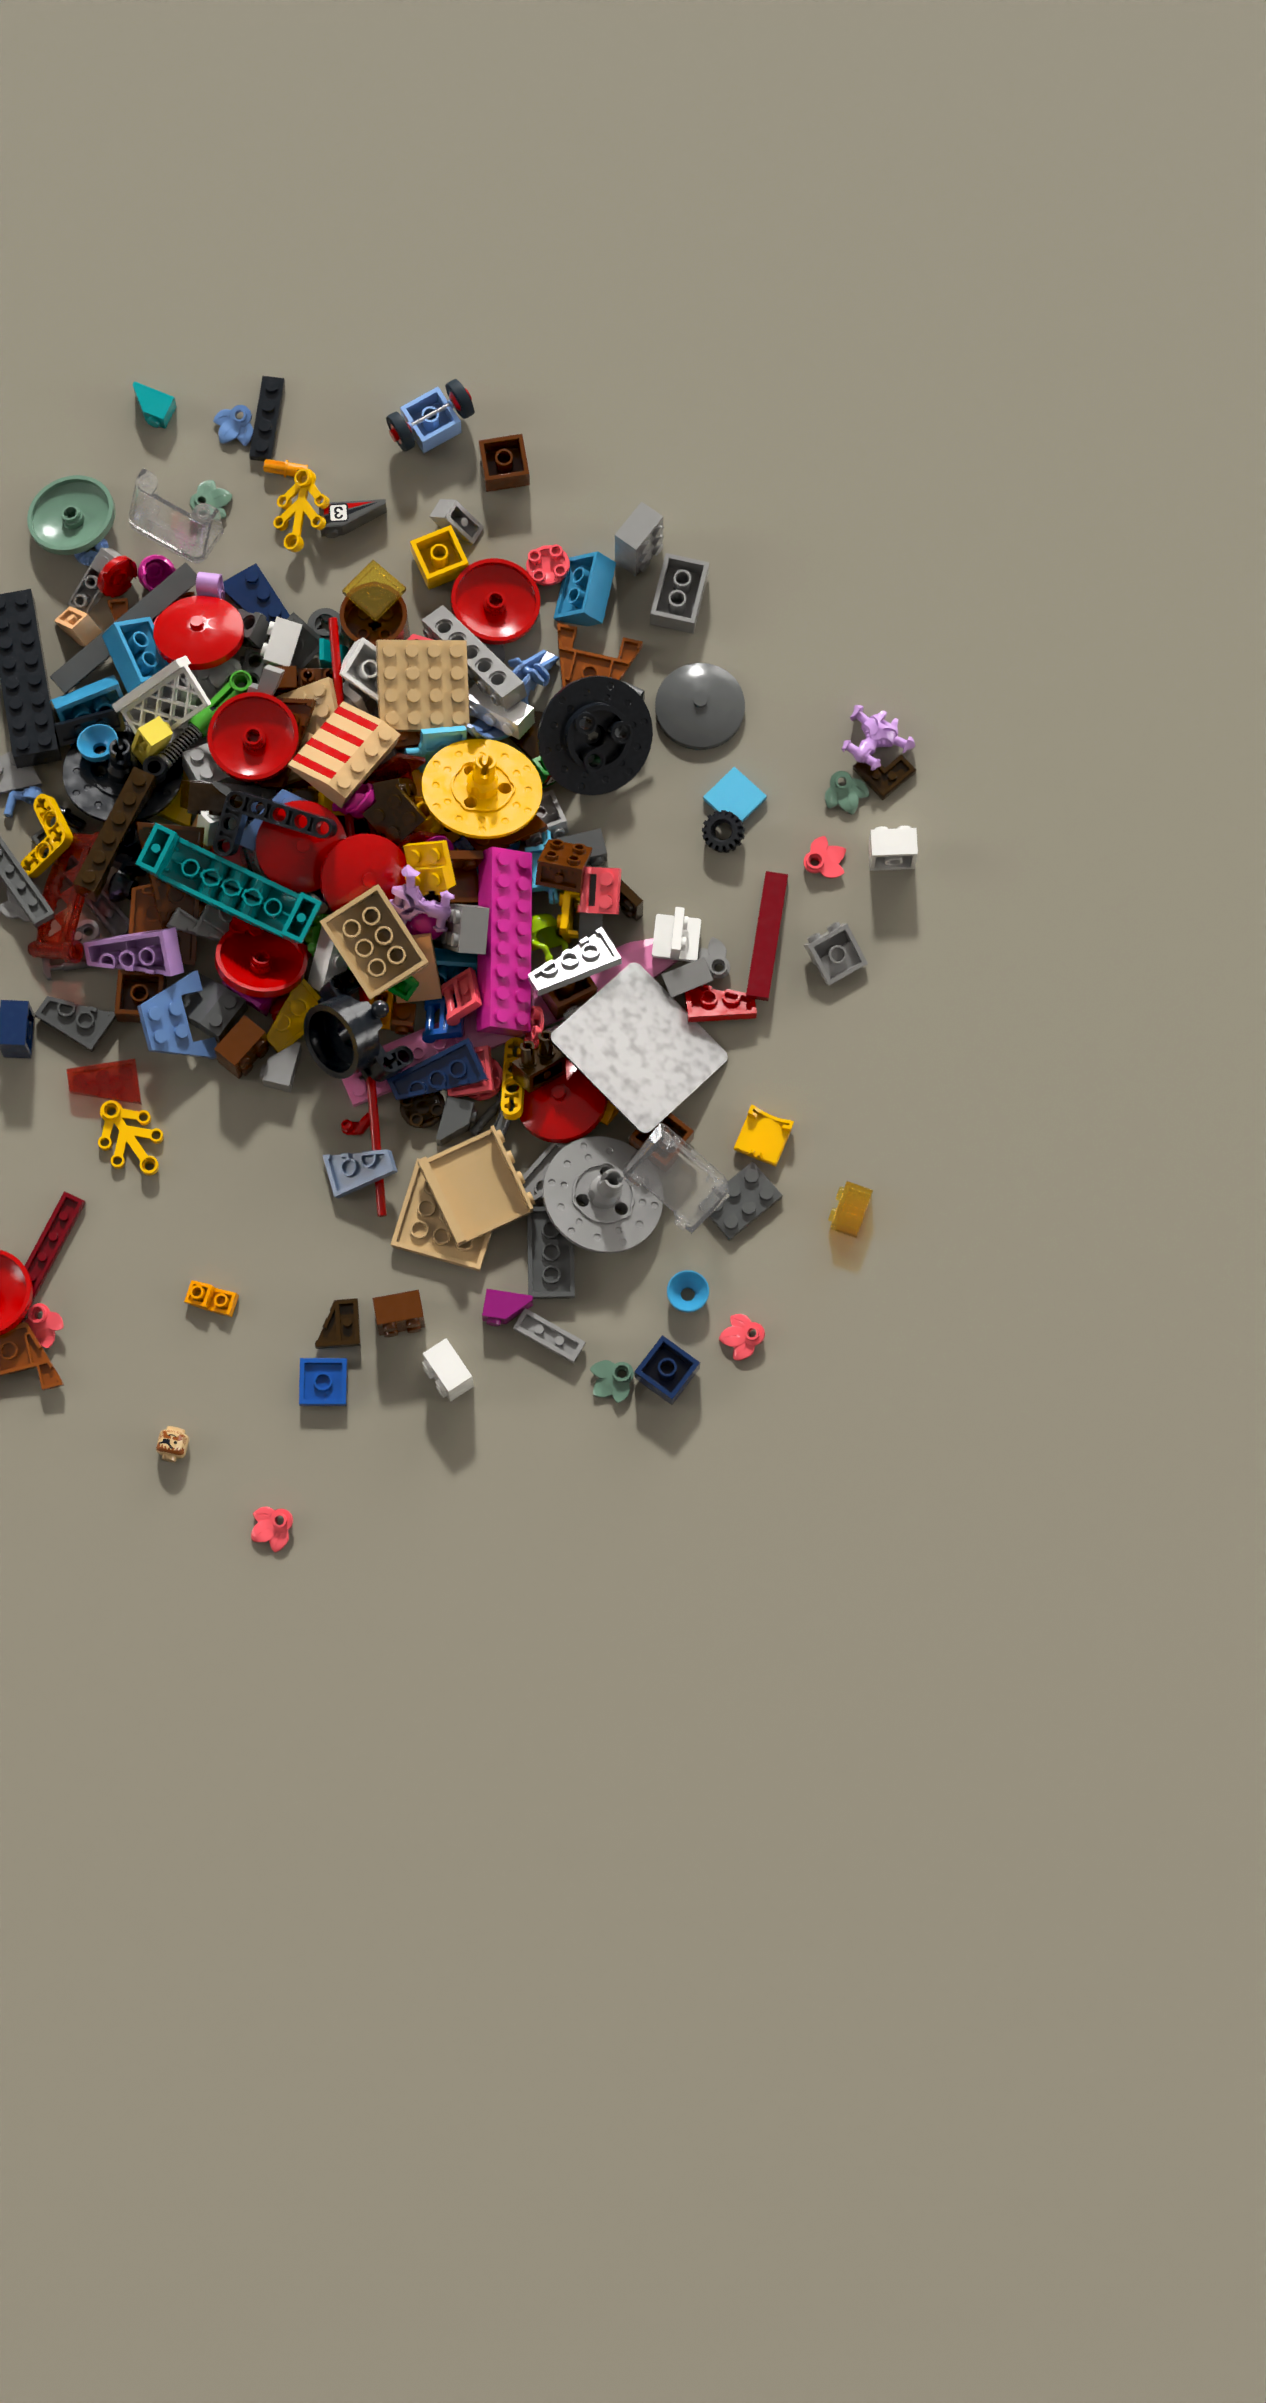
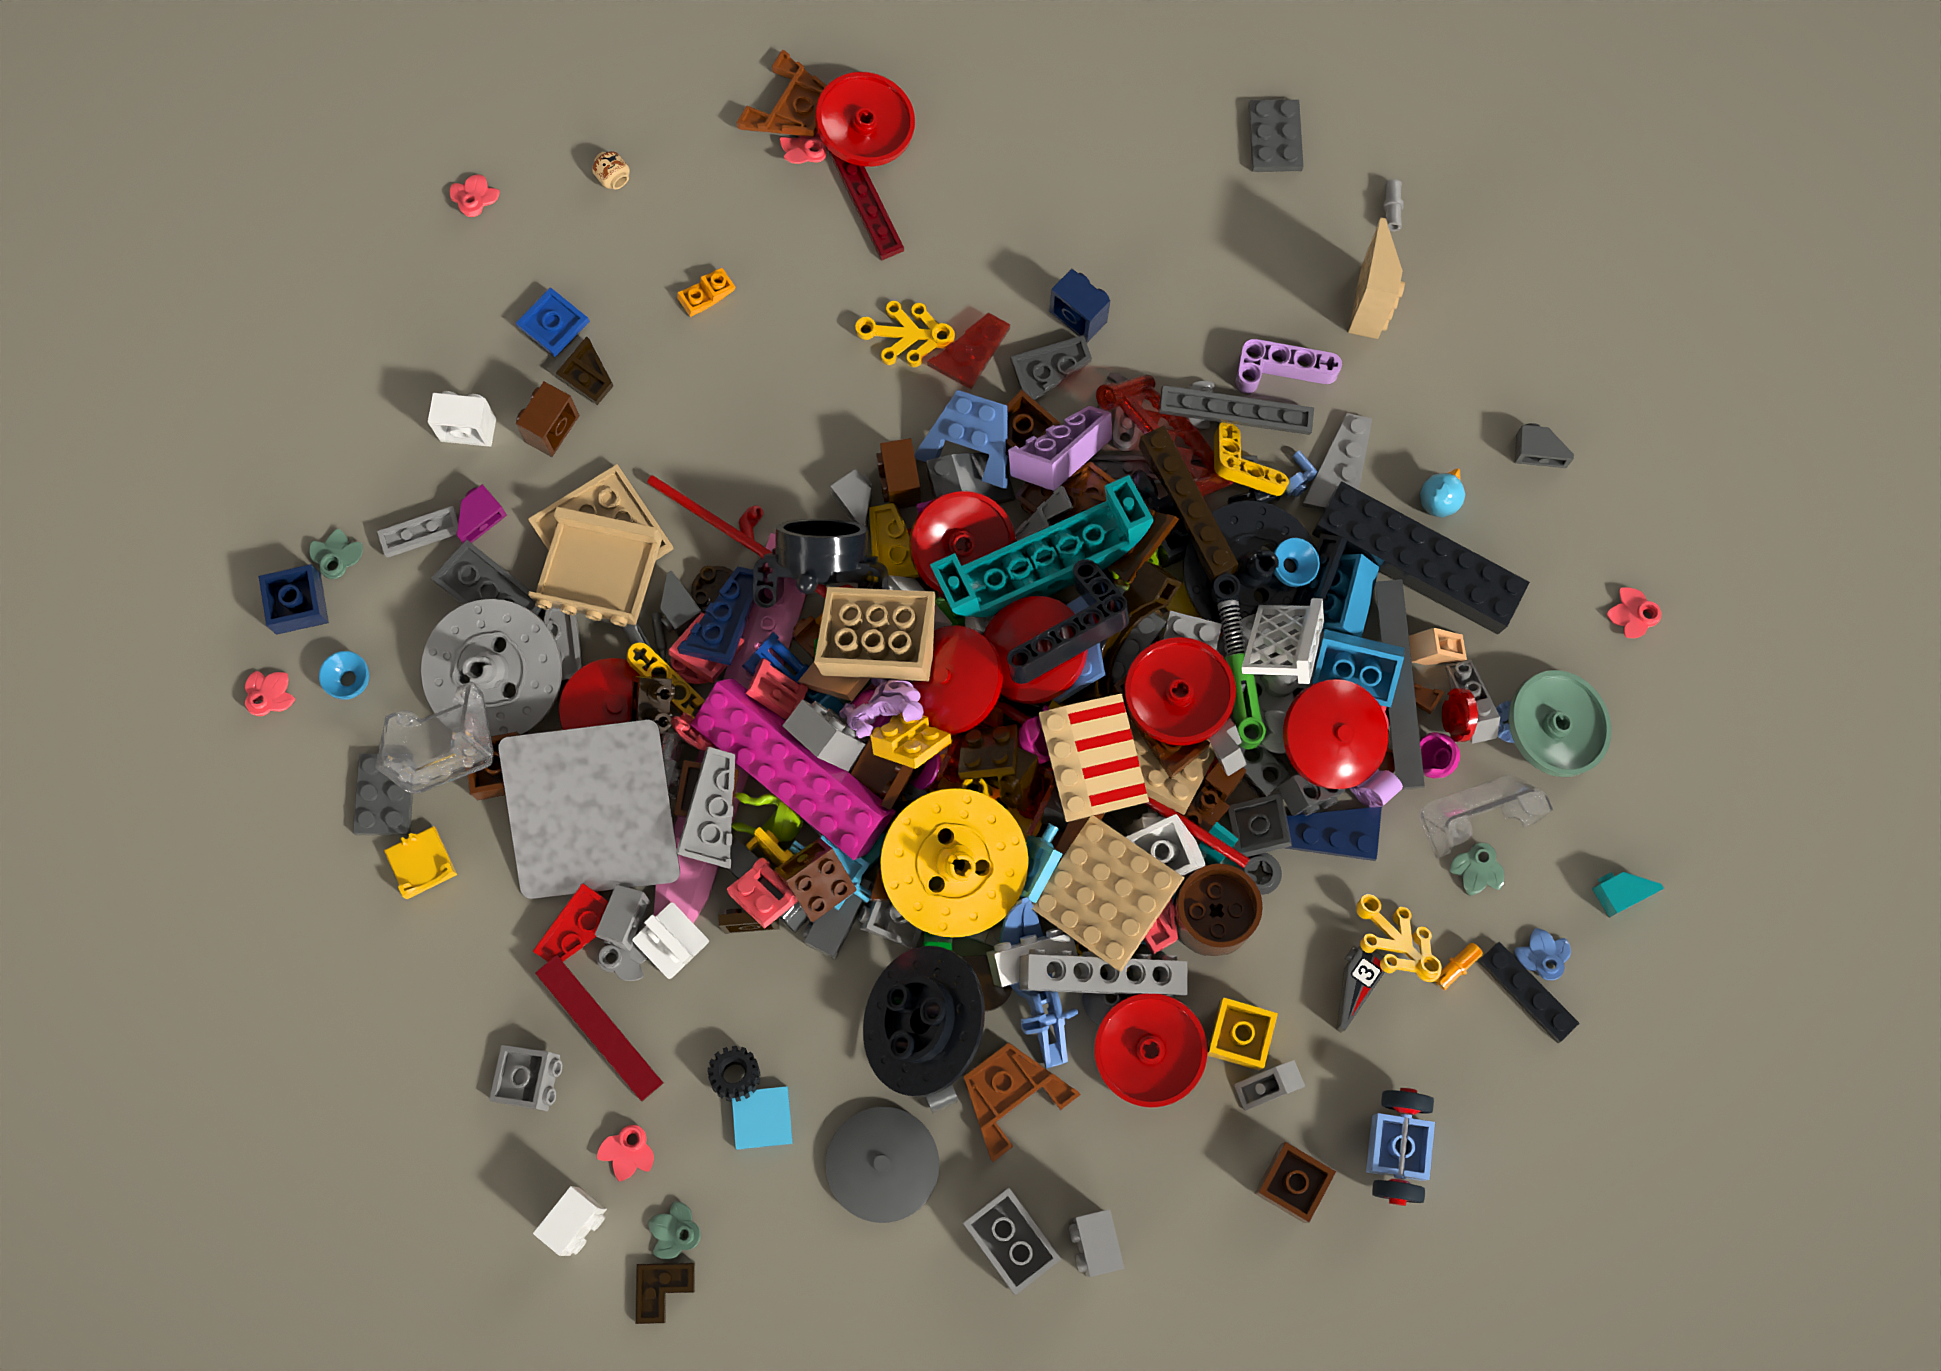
camera: 130 degrees right, 0 degrees up
(151, 739) = (1256, 607): light yellow slope -> none
(281, 643) = (1264, 804): white piece -> none
(357, 1170) = (705, 486): sand blue wing -> none
(374, 590) = (1243, 923): clear yellow tile -> none
(548, 565) = (1151, 1138): coral dish -> none
(585, 590) = (1094, 1151): dark azure slope -> none
(851, 1209) = (283, 882): clear yellow brick -> none
(878, 734) = (703, 1317): lavender piece -> none

